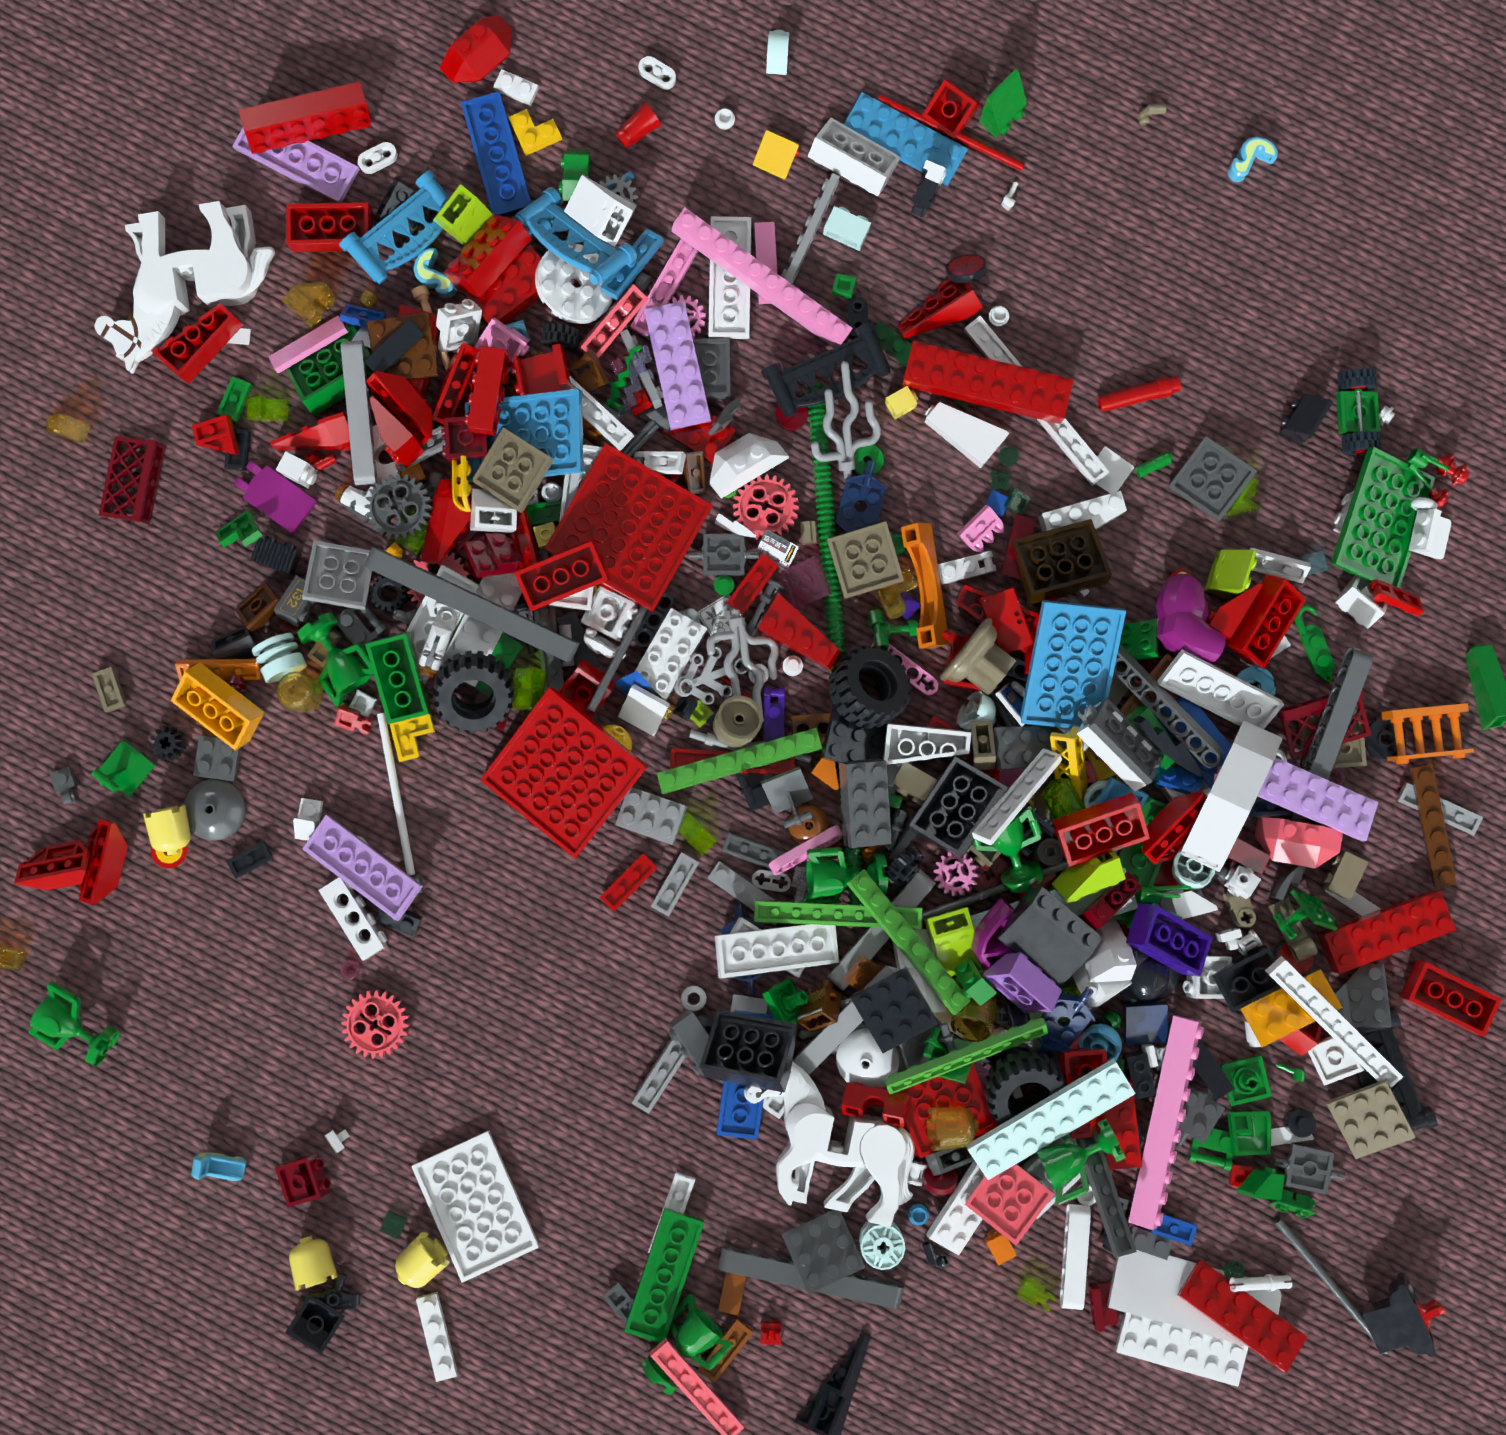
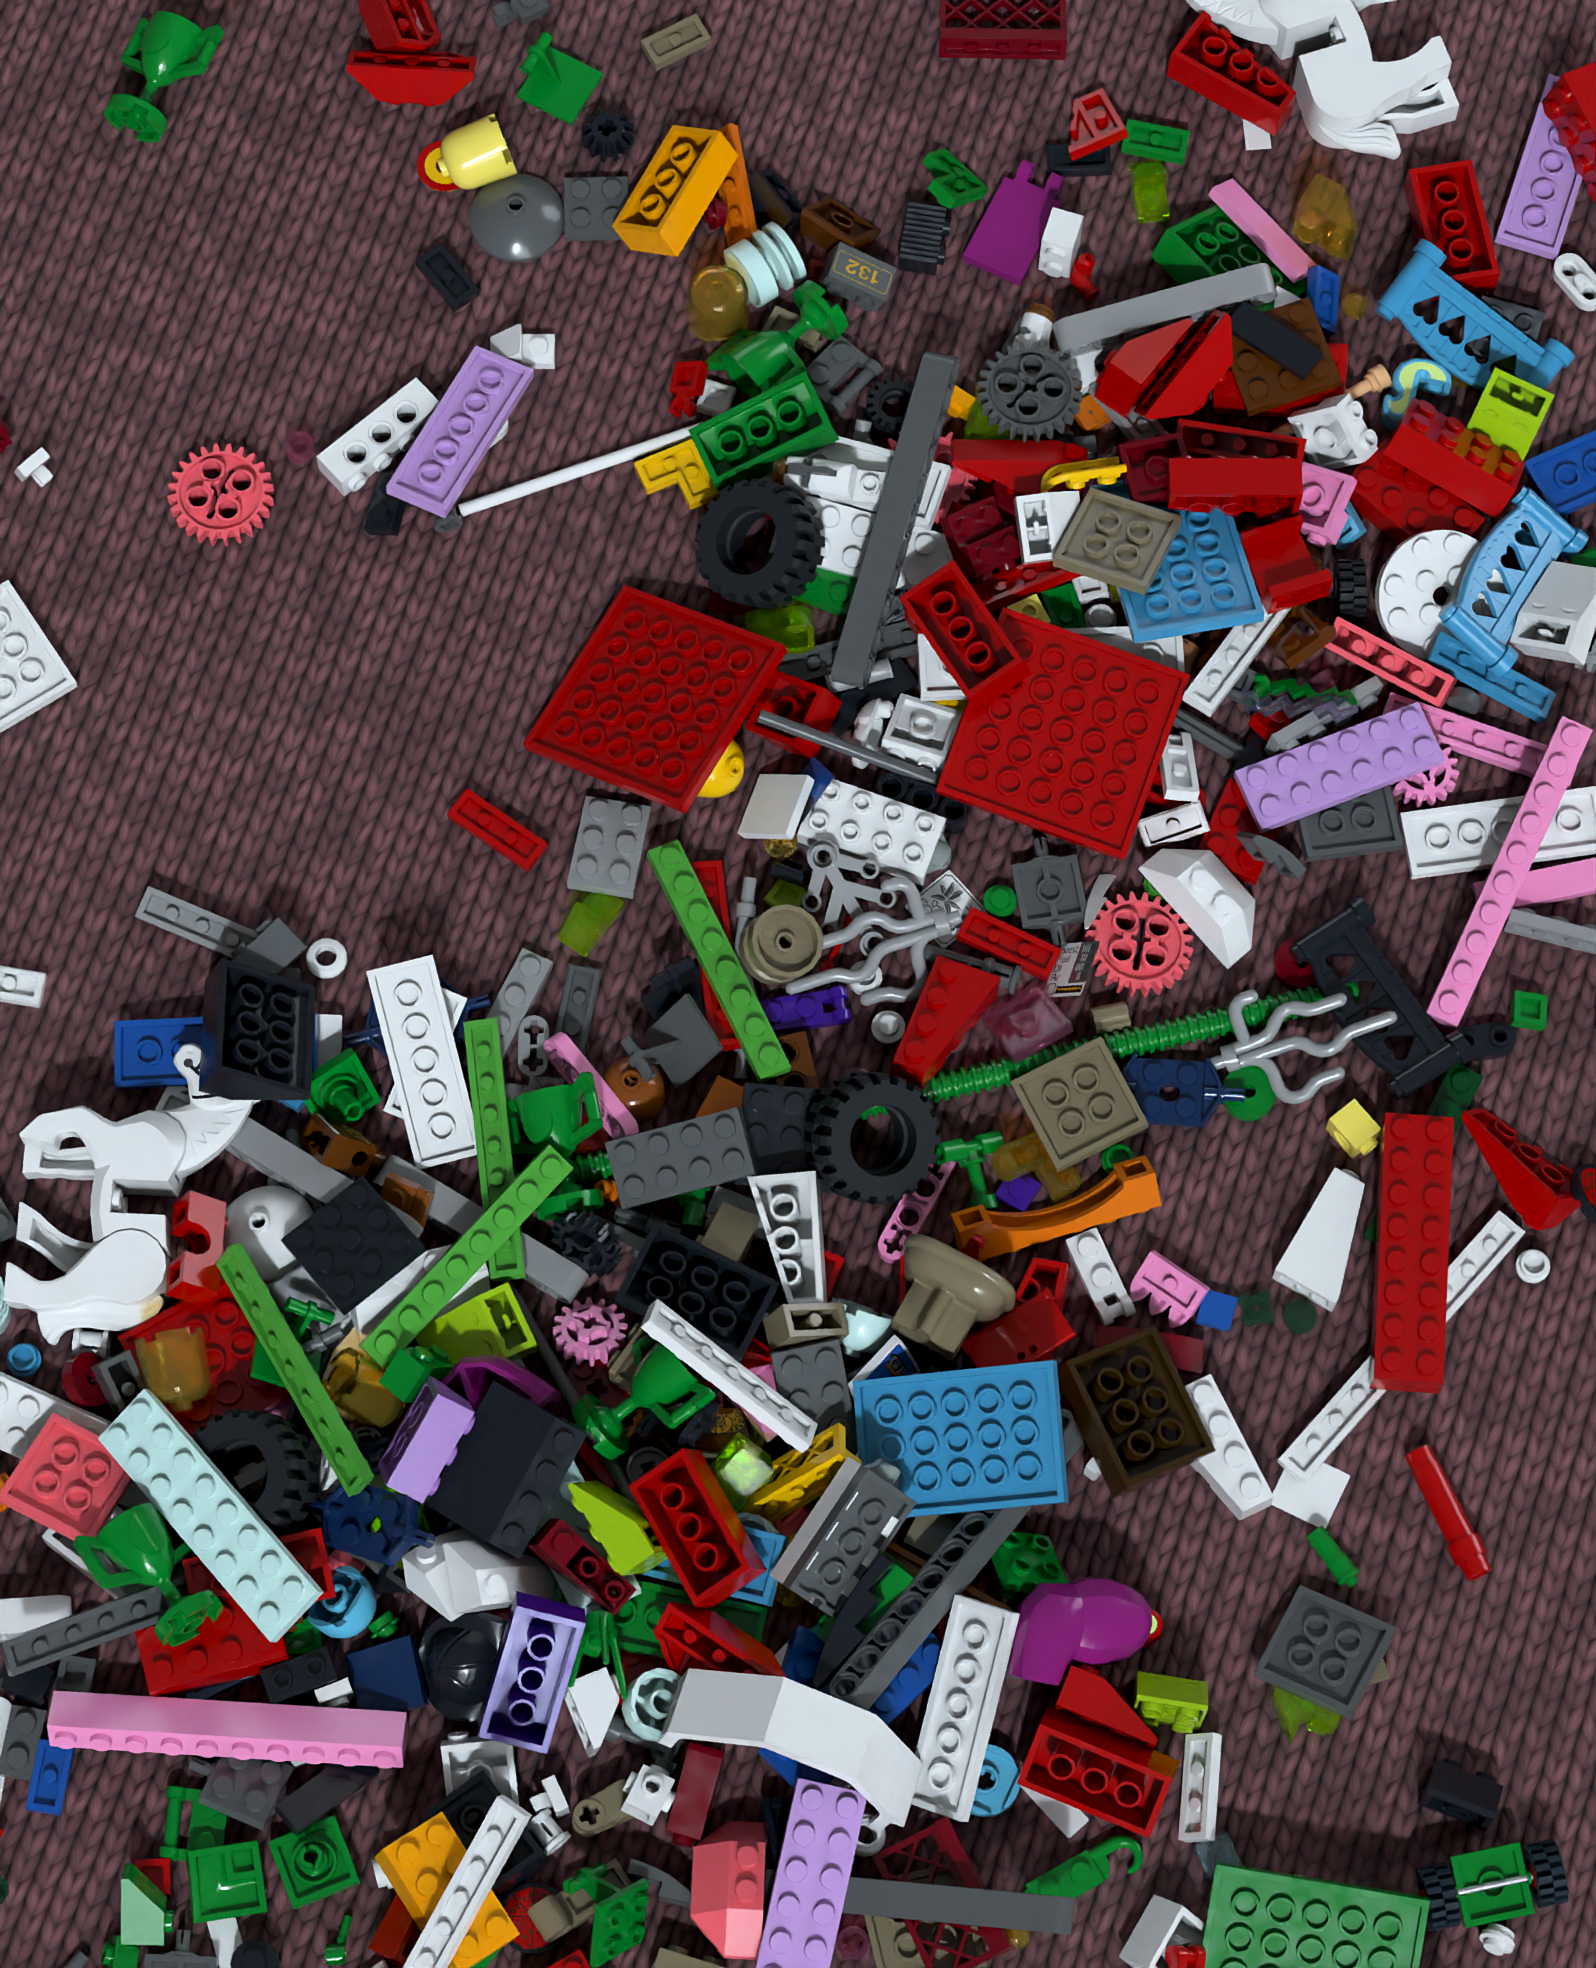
camera: 80 degrees right, 15 degrees down
(329, 434) = (1122, 272): red wedge -> none
(337, 575) = (903, 322): light grey plate -> none
(675, 884) = (505, 900): light grey plate -> none
(1017, 501) = (1225, 1341): tile -> none

